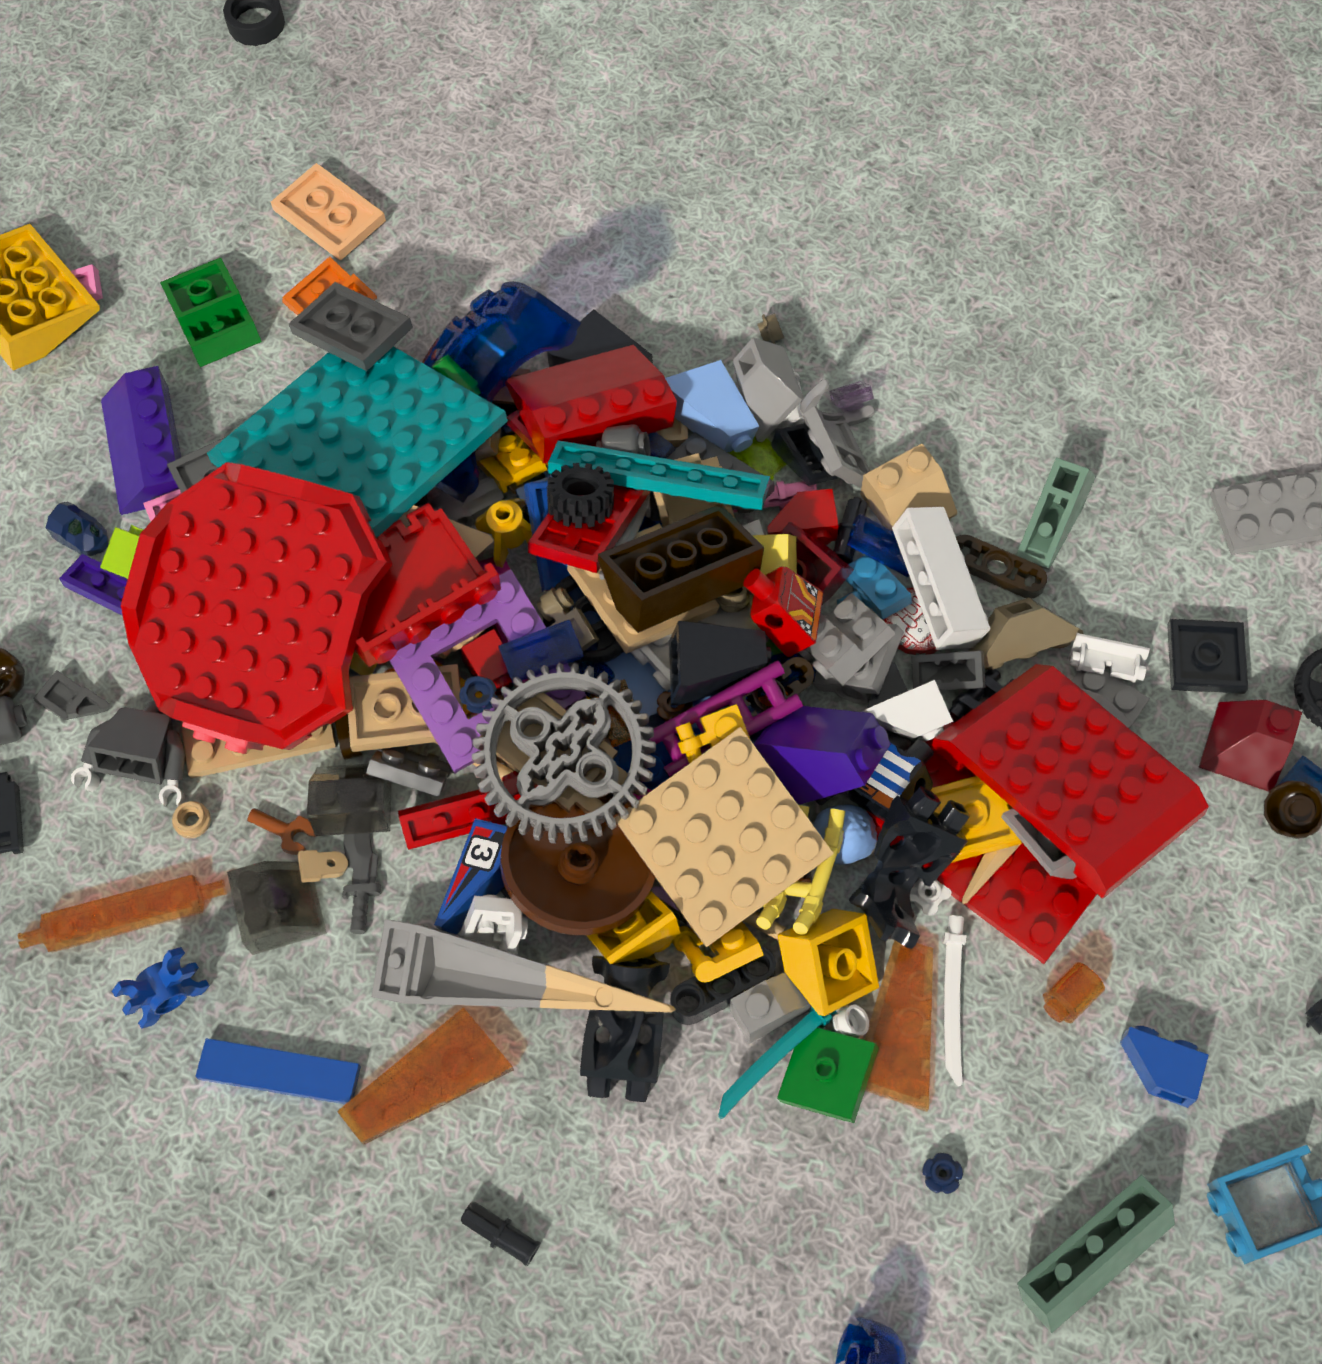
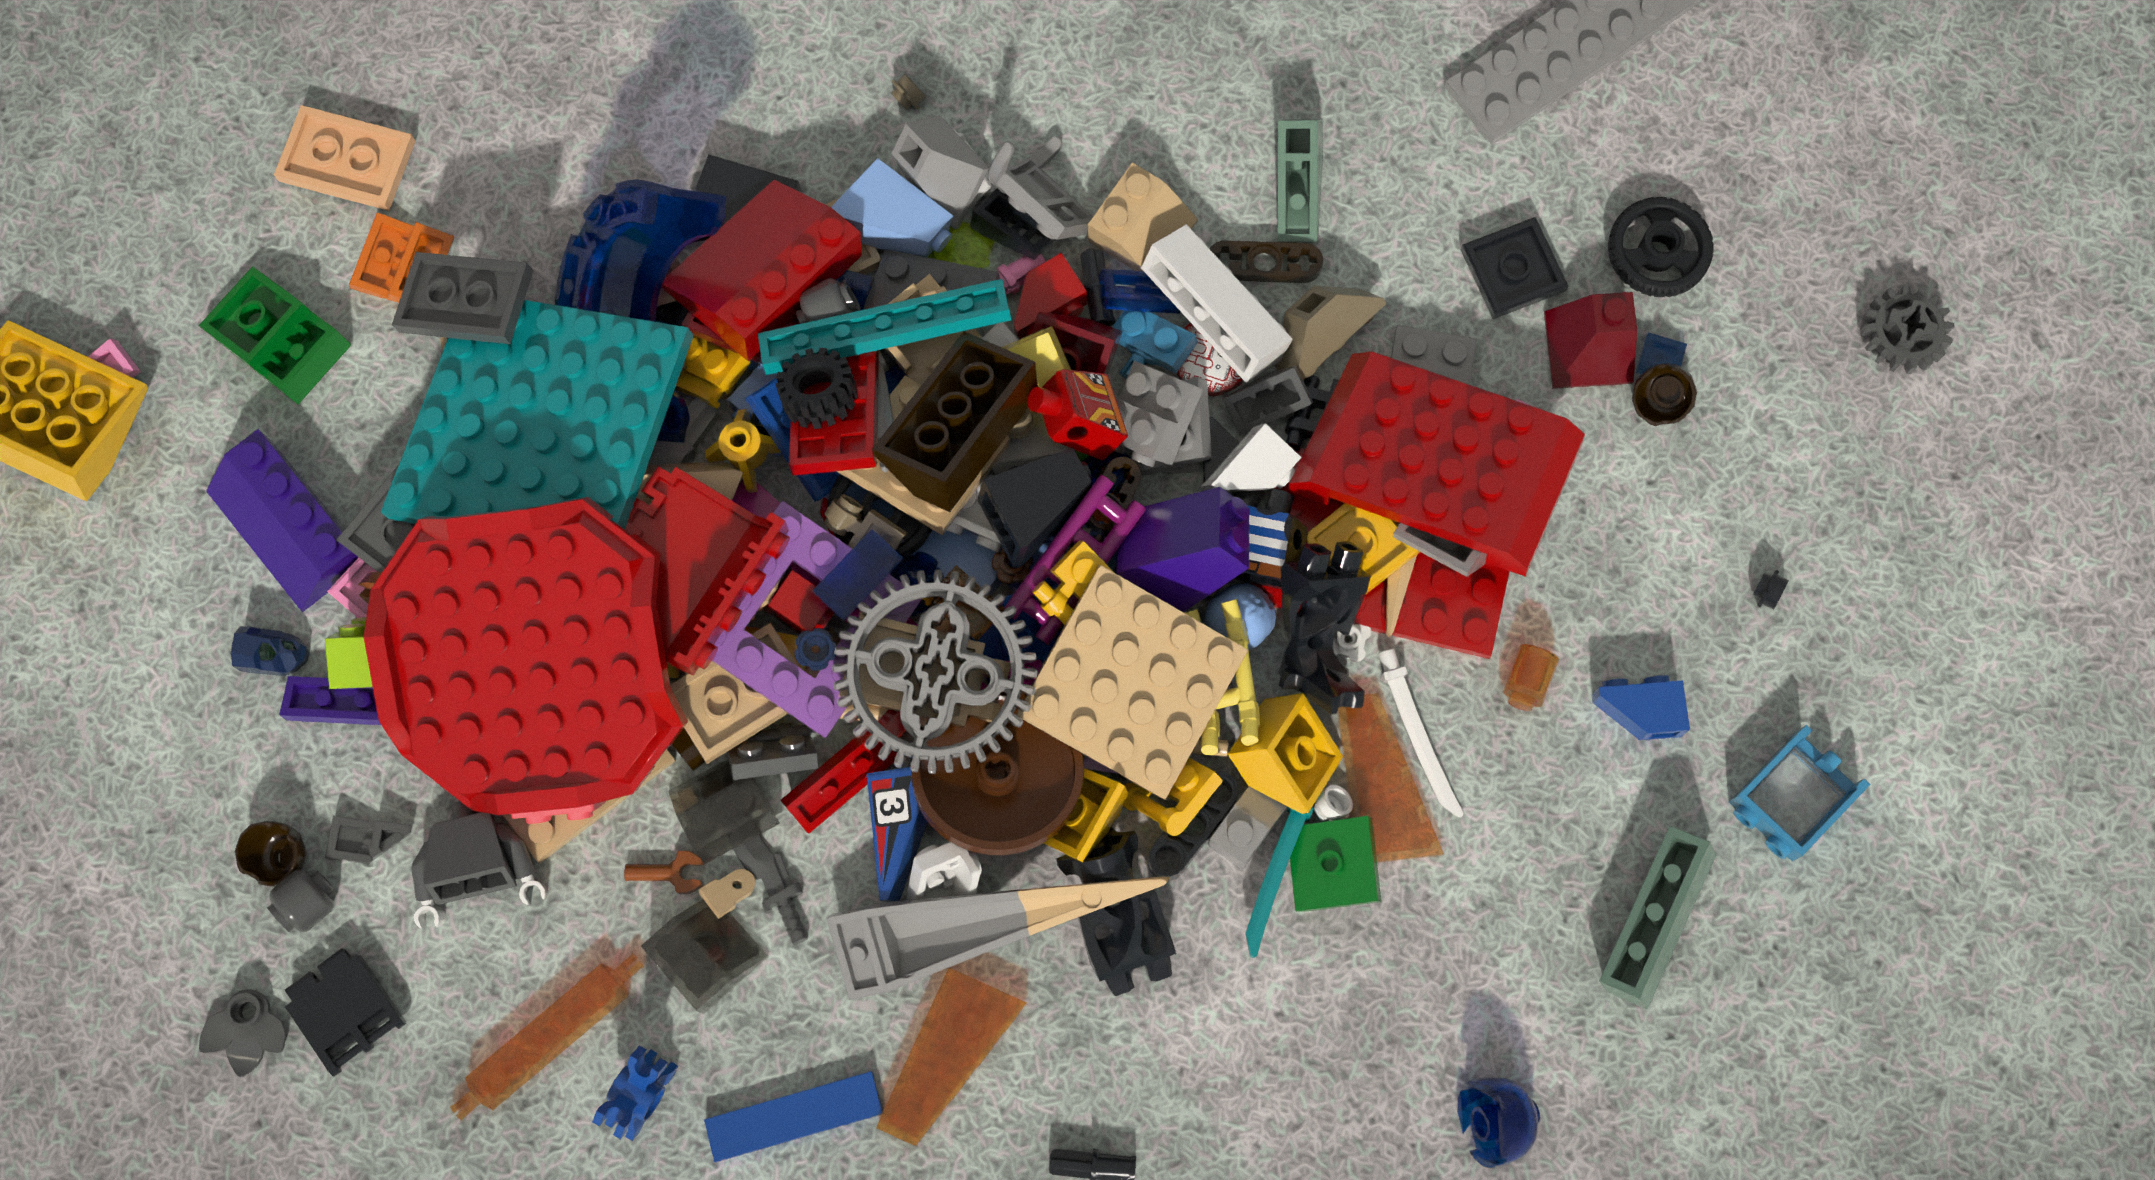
camera: 25 degrees left, 10 degrees up
(189, 809) = (553, 903): tan plate -> none
(453, 371) = (606, 302): green cone -> none
(851, 396) = (1030, 133): clear purple plate -> none
(934, 1181) = (1472, 912): dark blue plate -> none
(1097, 653) = (1402, 317): white hinge -> none

